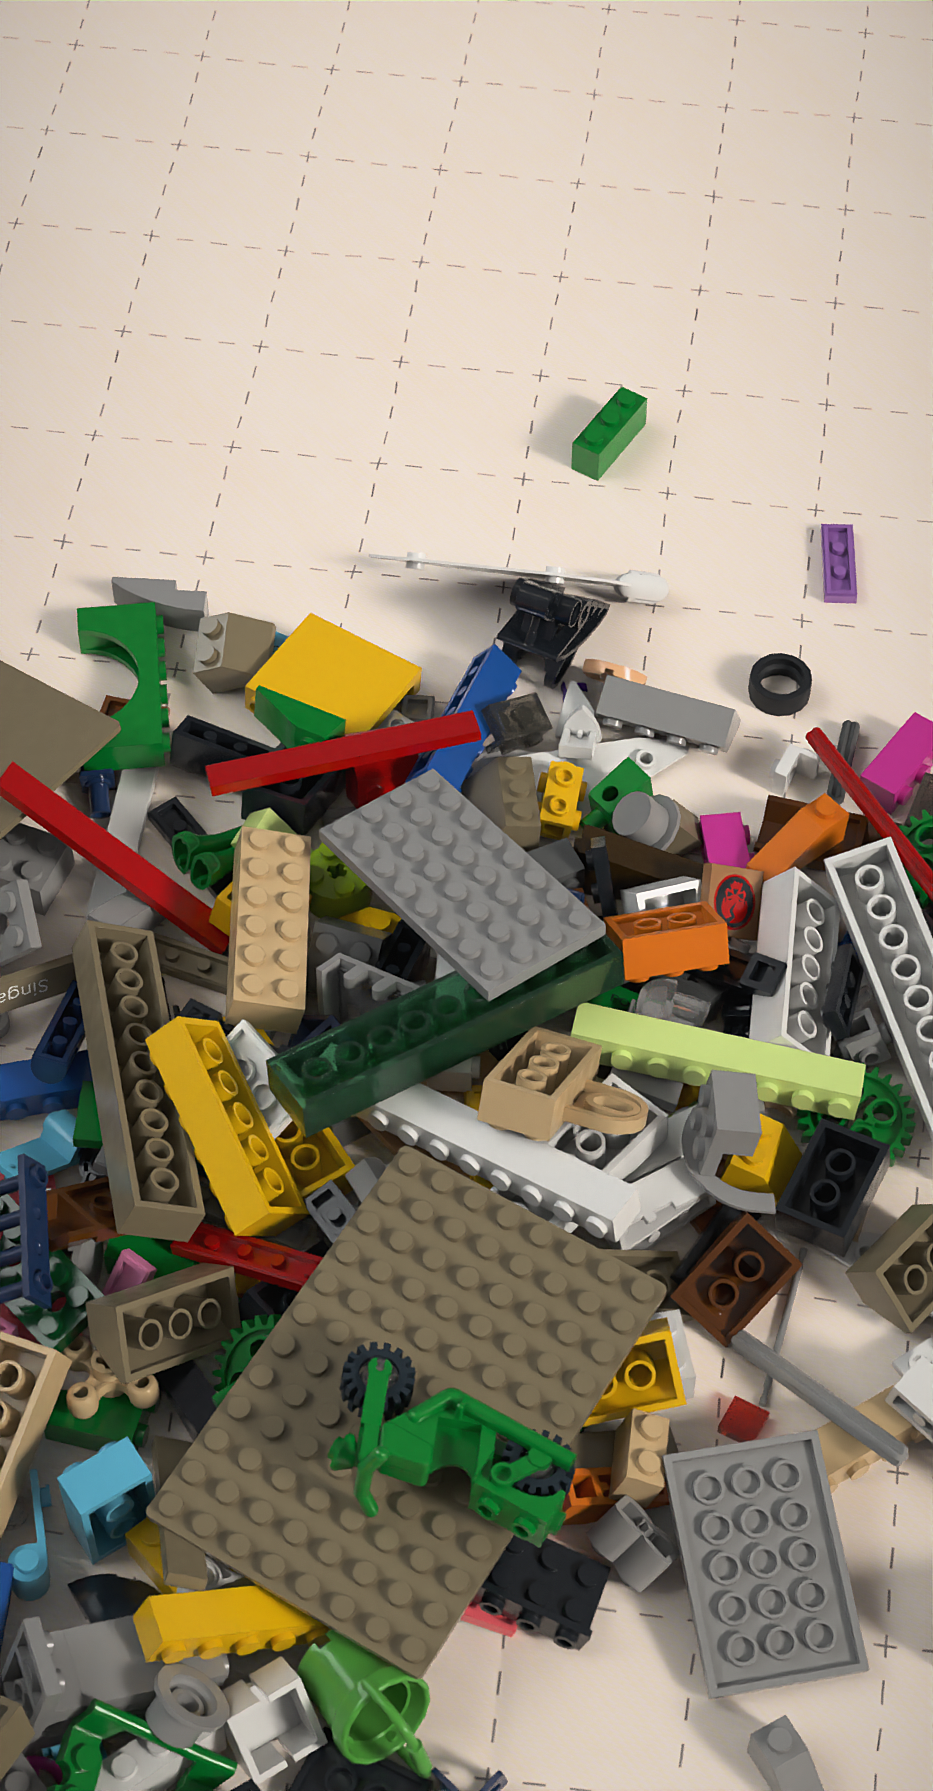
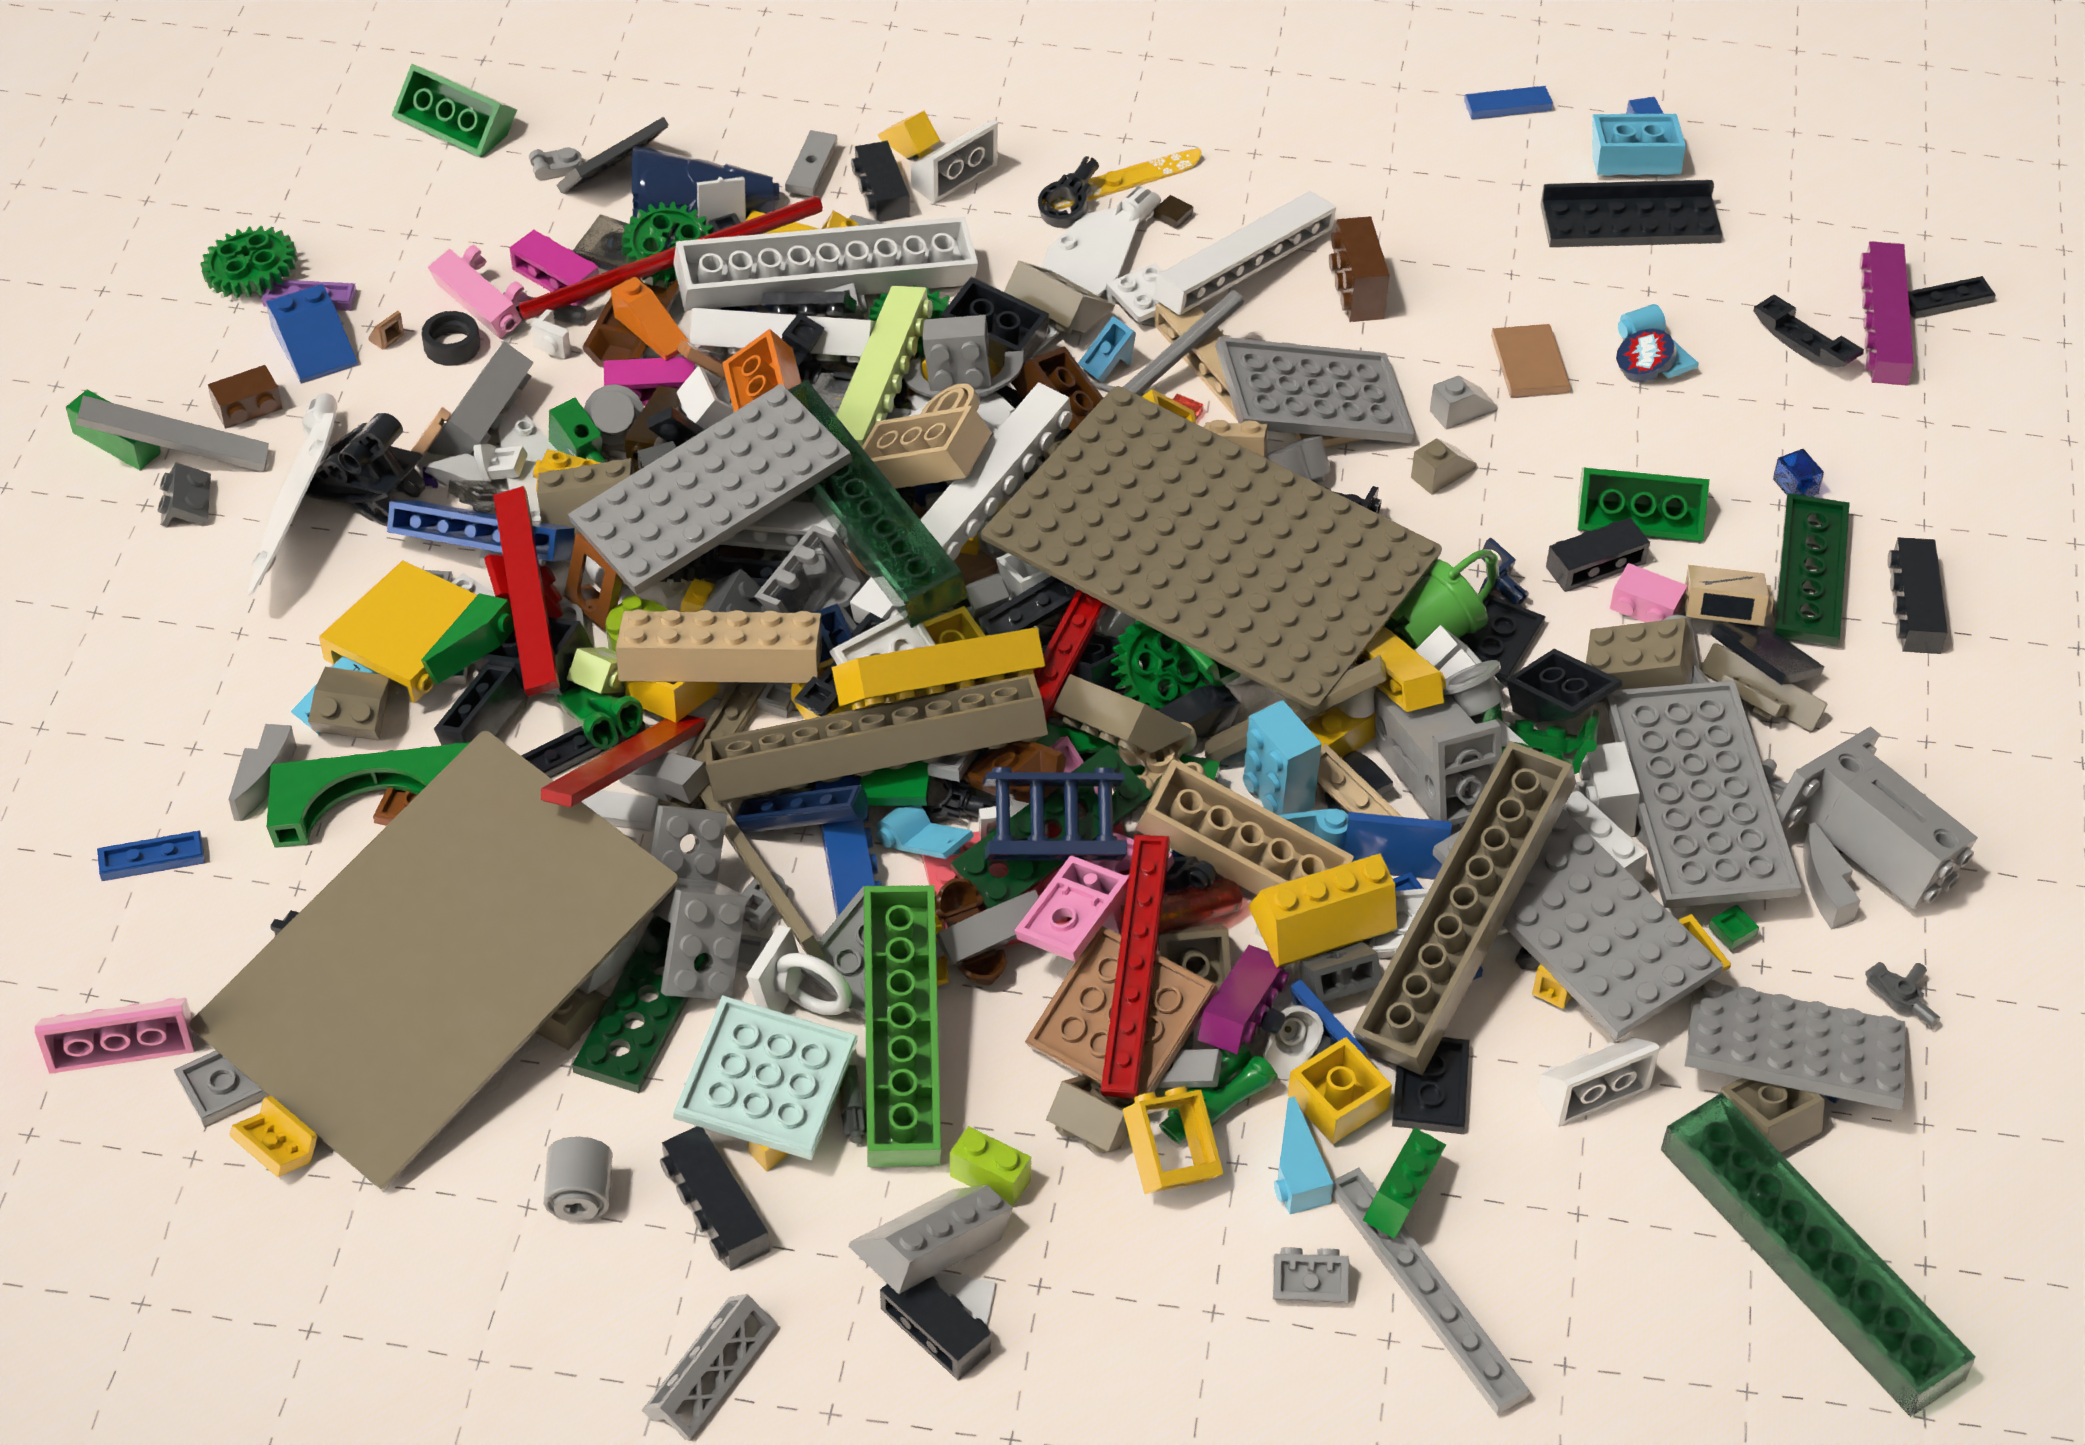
camera: 90 degrees left, 5 degrees down
(70, 543) = (150, 855): none -> blue tile
(88, 1586) = (1348, 787): none -> tan tile
(450, 1430) = (1272, 492): green piece -> none
(527, 501) = (184, 495): none -> dark grey bracket
(588, 470) = (172, 433): none -> light grey tile
(664, 1735) = (1439, 465): none -> dark tan slope
(669, 527) = (245, 396): none -> reddish brown brick
(769, 567) = (311, 333): none -> blue slope
(784, 631) = (387, 331): none -> medium nougat slope
(826, 1325) = (1111, 345): none -> dark azure slope
(849, 694) = (475, 293): none -> bright pink brick
(873, 504) = (249, 261): none -> green gear

